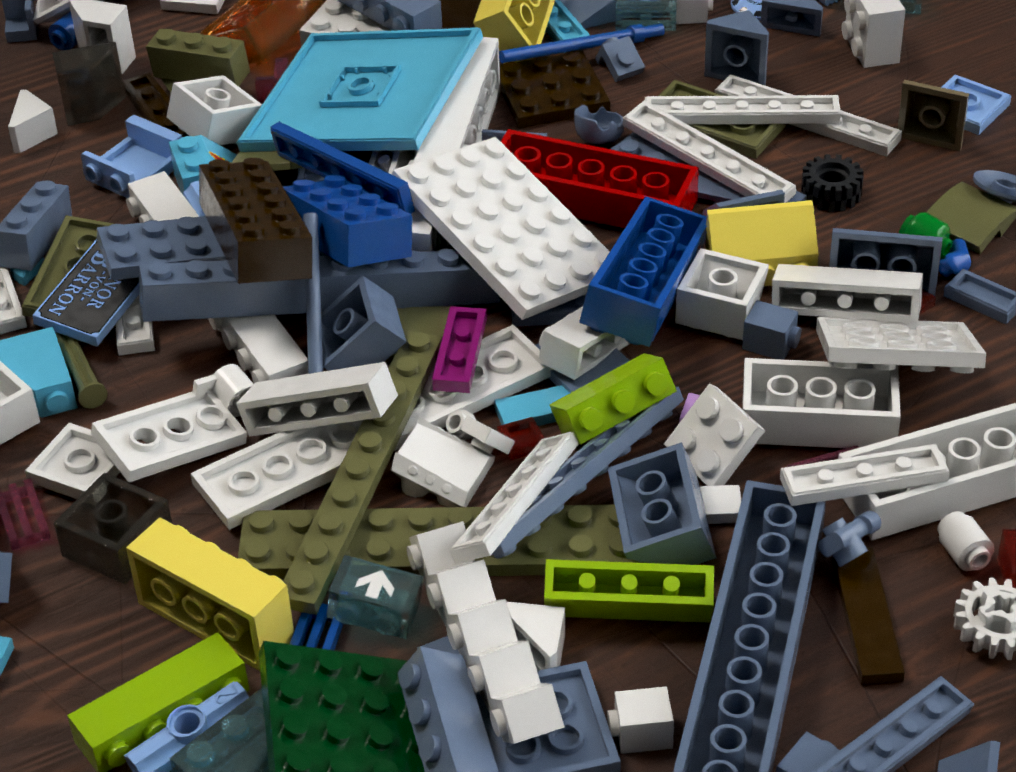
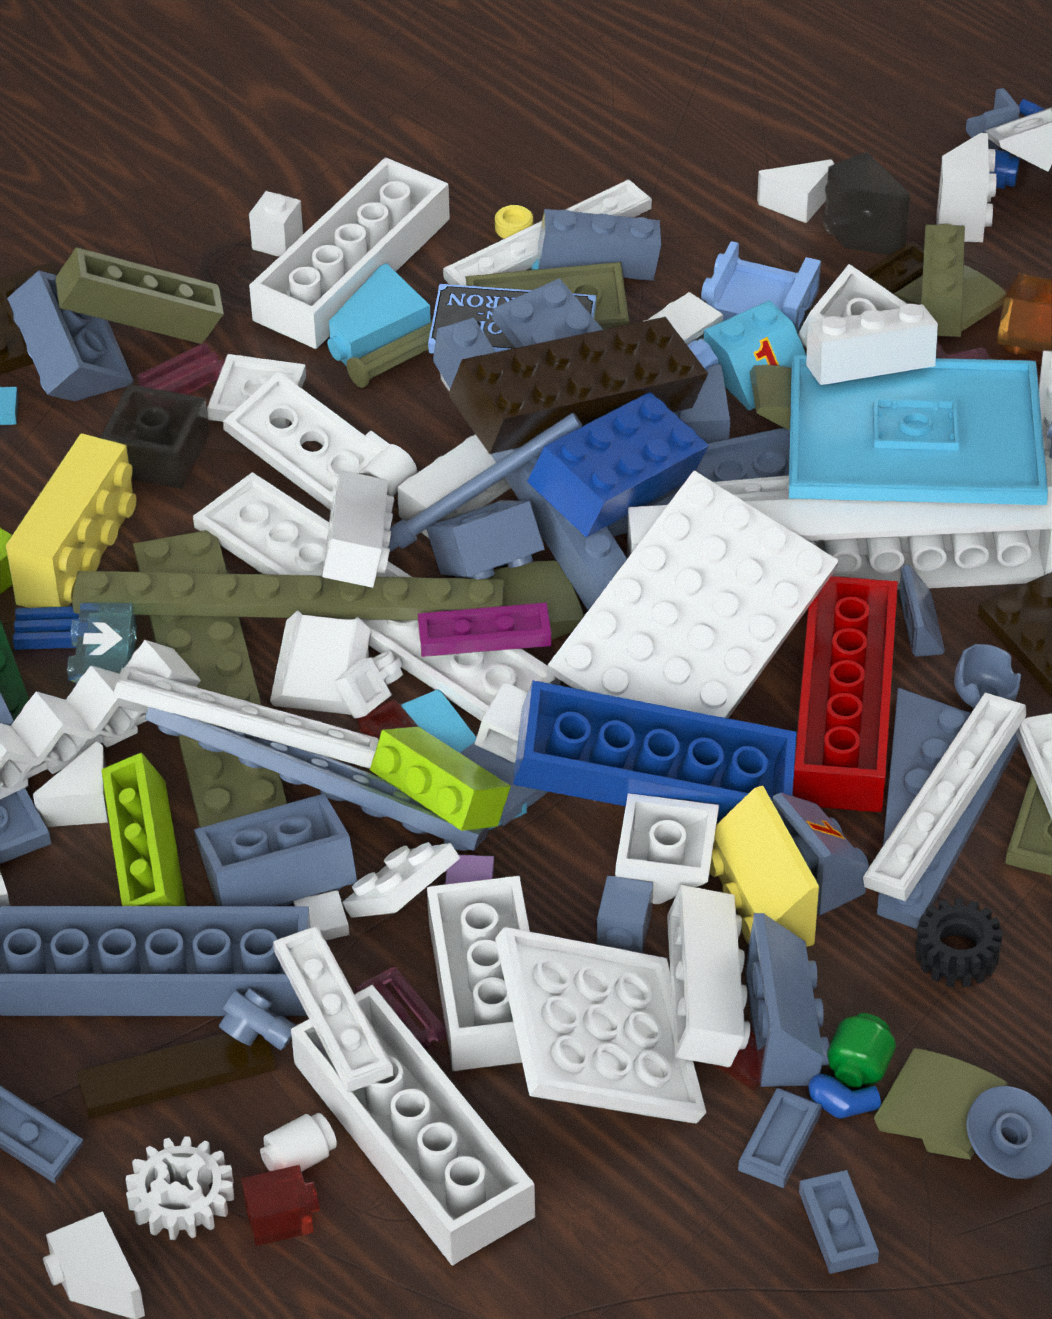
camera: 75 degrees right, 5 degrees up
(268, 87) = (871, 344): none -> white brick
(331, 161) = (725, 435): blue tile -> none

